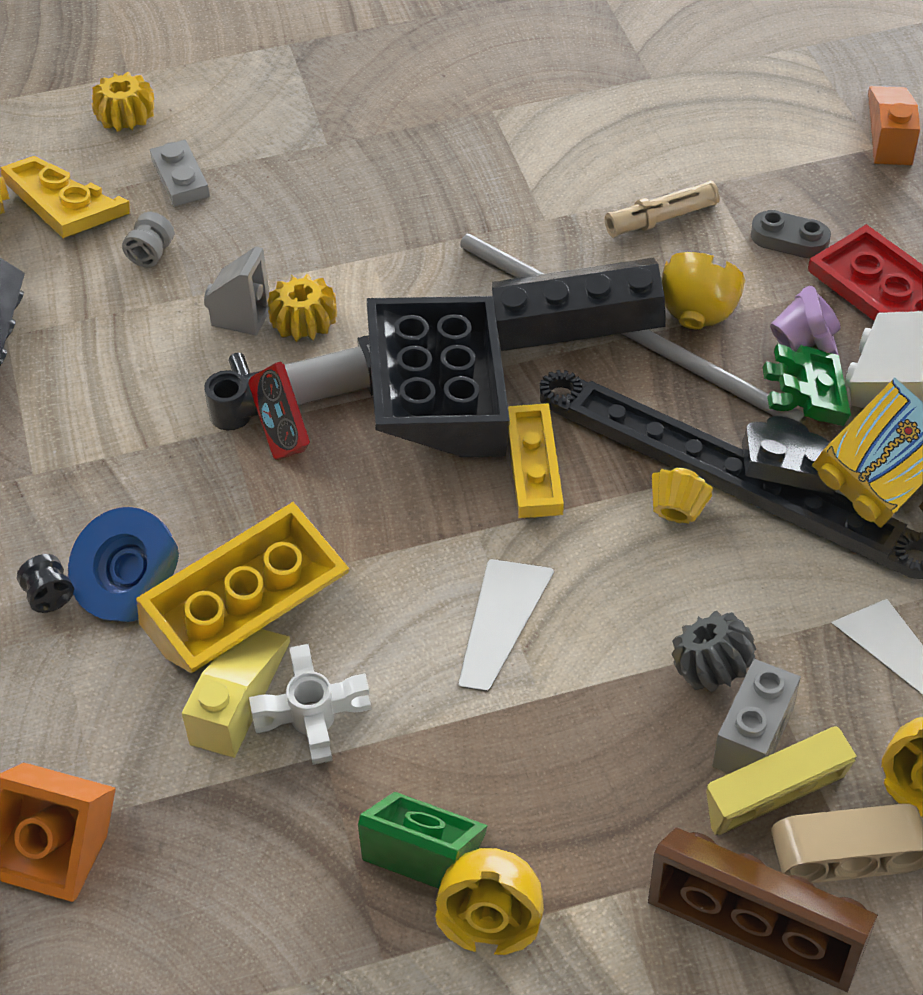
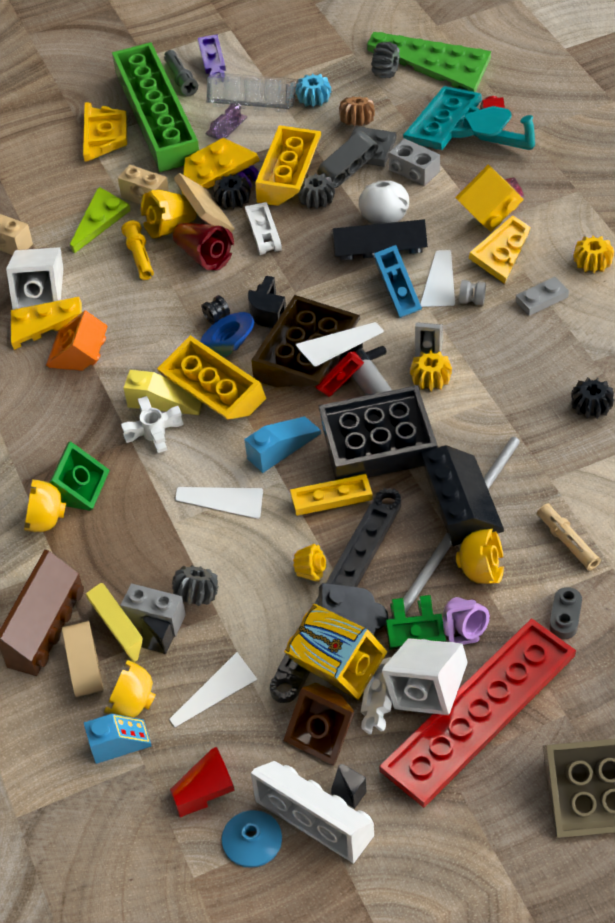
camera: 85 degrees right, 0 degrees up
(62, 510) = (265, 304): none -> black brick
(83, 323) = (397, 281): none -> dark azure slope
(105, 287) = (440, 285): none -> white sticker
(200, 449) = (281, 361): none -> dark brown slope
(232, 397) = (332, 345): none -> white sticker
(404, 518) = (278, 441): none -> dark azure slope
(414, 145) = (592, 398): none -> black gear
(806, 716) = (156, 634): none -> black slope

